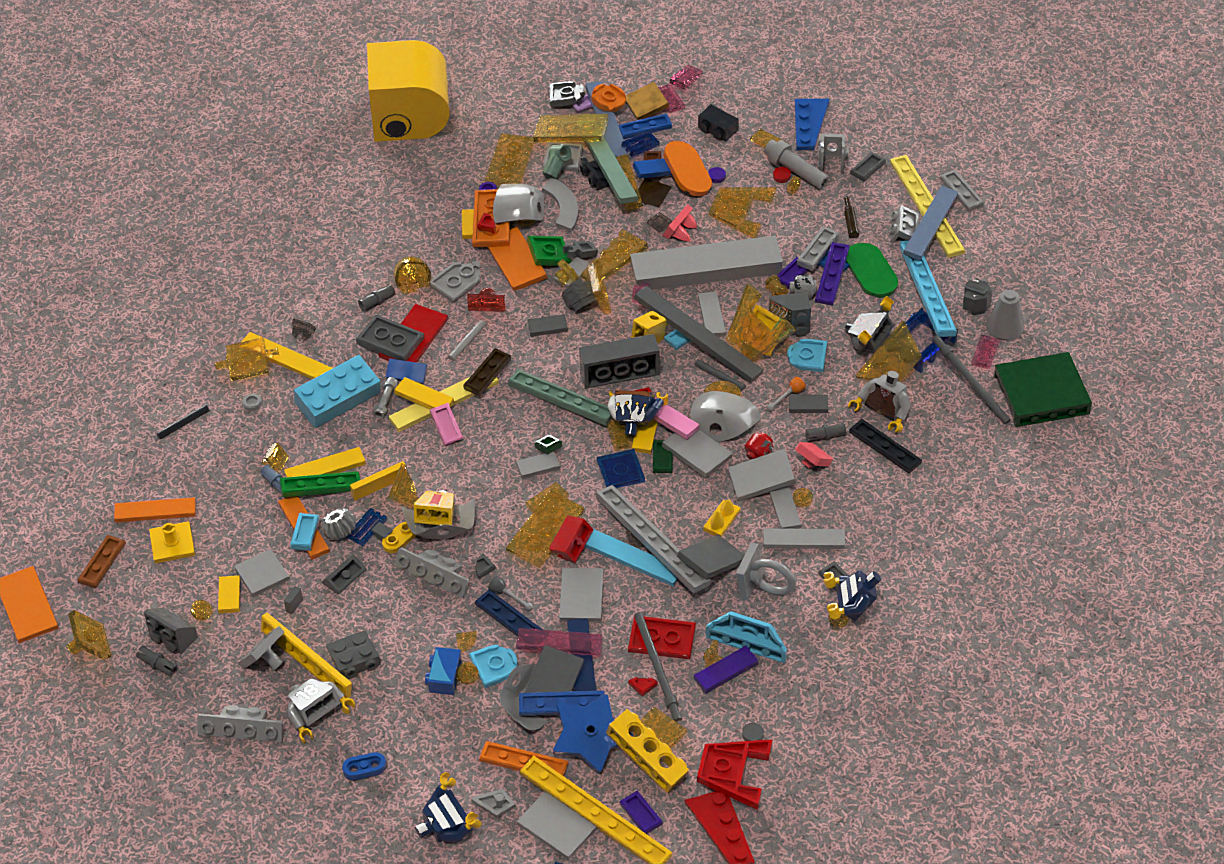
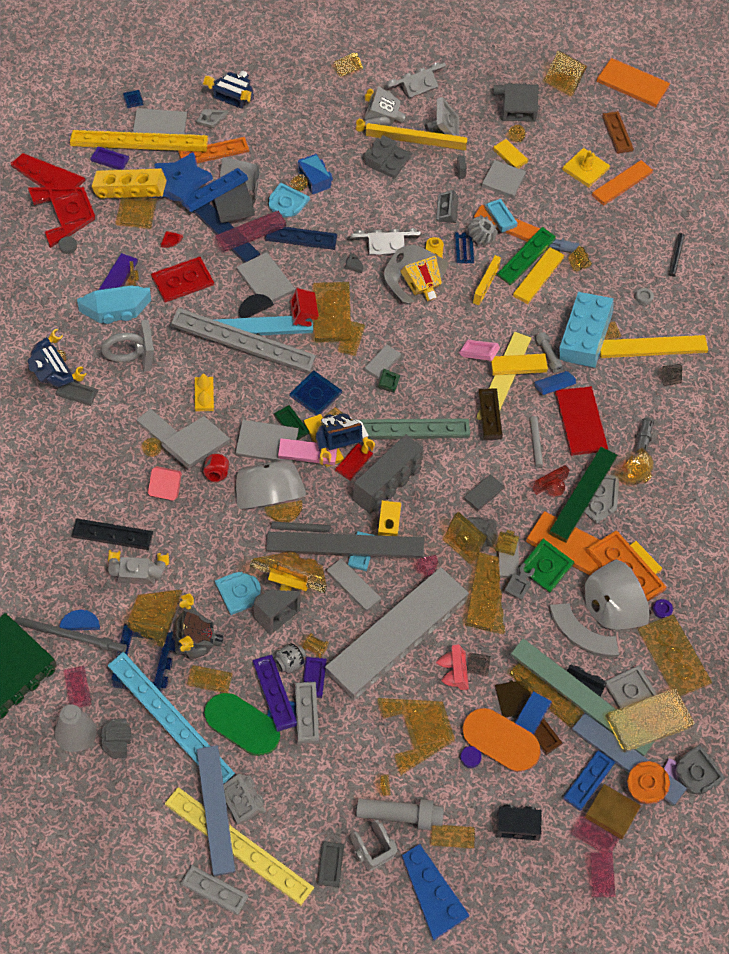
camera: 140 degrees right, 10 degrees up
(247, 359) = (682, 321): clear yellow plate -> none
(295, 783) = (348, 64): none -> clear yellow panel
(364, 767) = (313, 96): blue plate -> none
(381, 531) = (449, 247): dark grey piece -> none
(390, 338) = (594, 401): dark grey tile -> none
(403, 488) = (459, 283): clear yellow tile -> none
(465, 640) = (321, 206): clear yellow tile -> none
(470, 278) = (583, 494): none -> dark green tile
(486, 224) = (619, 551): red tile -> none
(498, 586) = (329, 252): hinge -> none
(557, 156) = (626, 667): sand green piece -> none
(613, 569) = (254, 305): none -> black tile
(642, 145) = (568, 766): clear blue tile -> none
(670, 699) = (143, 237): dark grey bar -> none
(711, 556) = (185, 347): dark grey tile -> none
(781, 174) = (409, 795): red tile -> none
(795, 386) = (226, 546): hinge -> none
(804, 538) = (127, 411): light grey tile -> none
(808, 403) = (205, 539): dark grey tile -> none
(825, 432) = (170, 516): dark grey pin -> none
(850, 217) = (302, 778): dark brown axle -> none
(870, 304) = (210, 679): none -> clear yellow tile
(954, 395) = (80, 620): none -> blue tile

